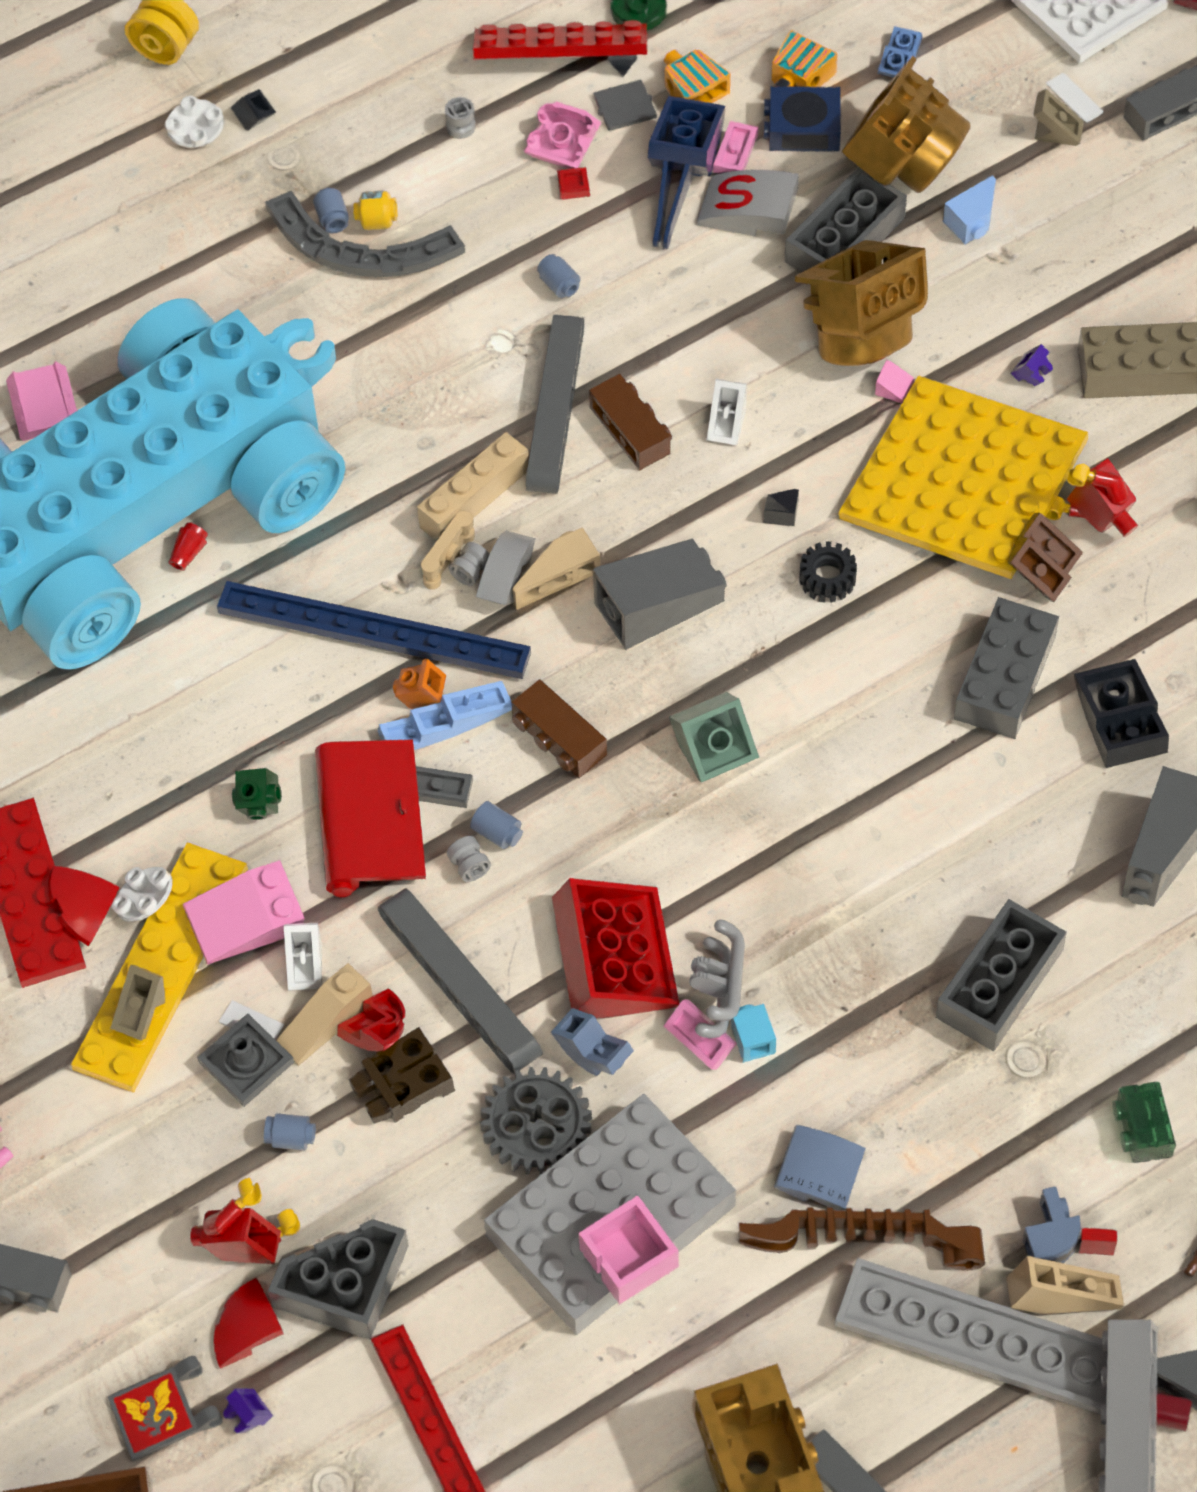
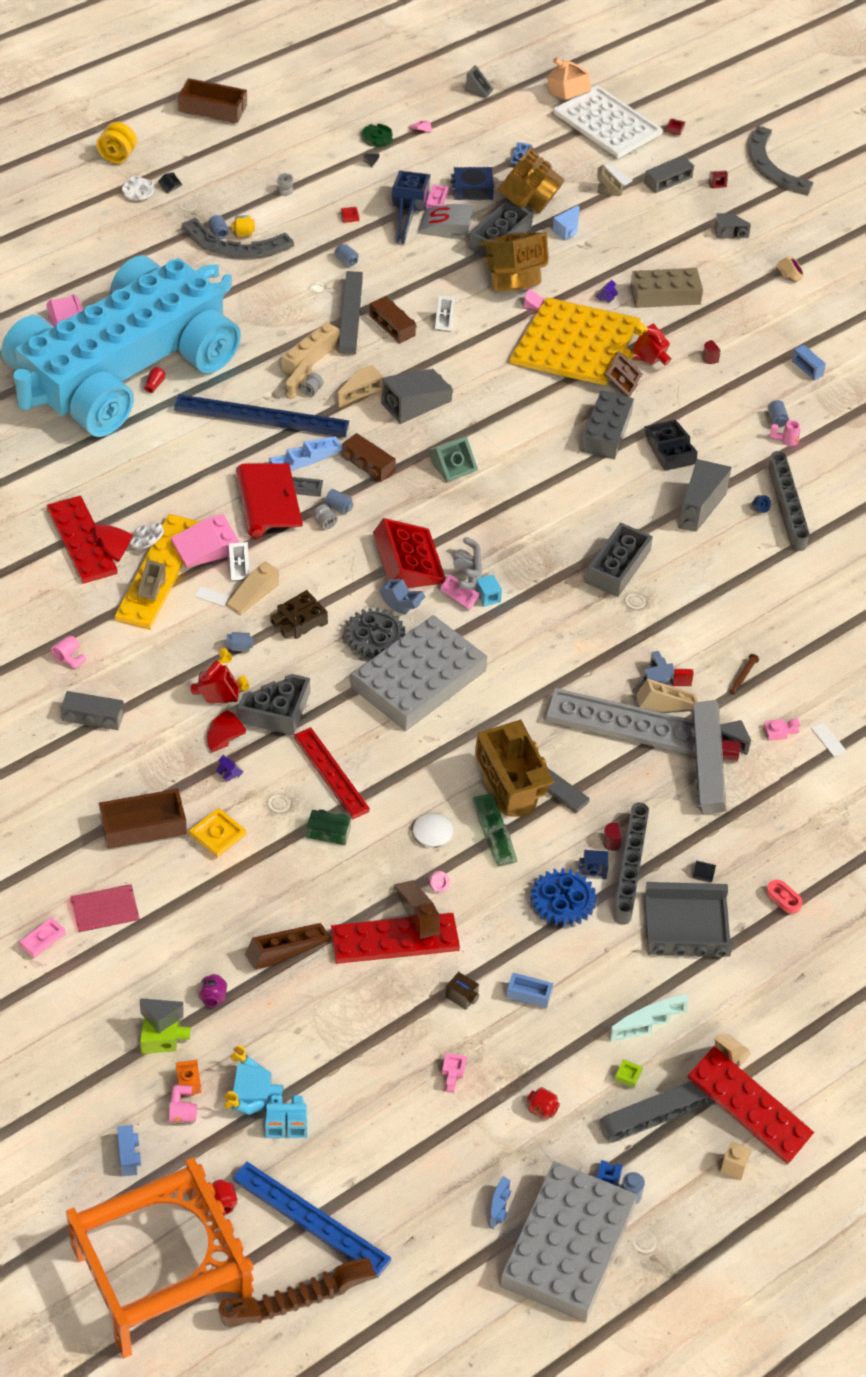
camera: 10 degrees left, 10 degrees down
(158, 1412) = (181, 771): flag -> none
(246, 1059) = (212, 610): dark grey plate -> none
(256, 793) = (205, 488): dark green brick -> none
(377, 1025) = (282, 591): red brick -> none
(413, 685) = (290, 438): orange brick -> none
(460, 981) = (326, 571): dark grey beam -> none
(504, 567) = (331, 385): light grey brick -> none
(560, 41) = (340, 148): red plate -> none
(562, 135) = (341, 191): bright pink slope -> none
(625, 105) = (374, 179): dark grey piece -> none
(628, 1249) = (434, 677): bright pink piece -> none
(695, 77) = (412, 162): light orange torso -> none
(782, 507) = (479, 357): black slope -> none
(803, 63) = (470, 156): light orange torso -> none
(819, 1167) = (530, 649): sand blue slope -> none
(828, 557) = (509, 378): black tyre -> none
(959, 1245) = (609, 681): reddish brown piece -> none
(1145, 1122) = (702, 624): clear green brick -> none

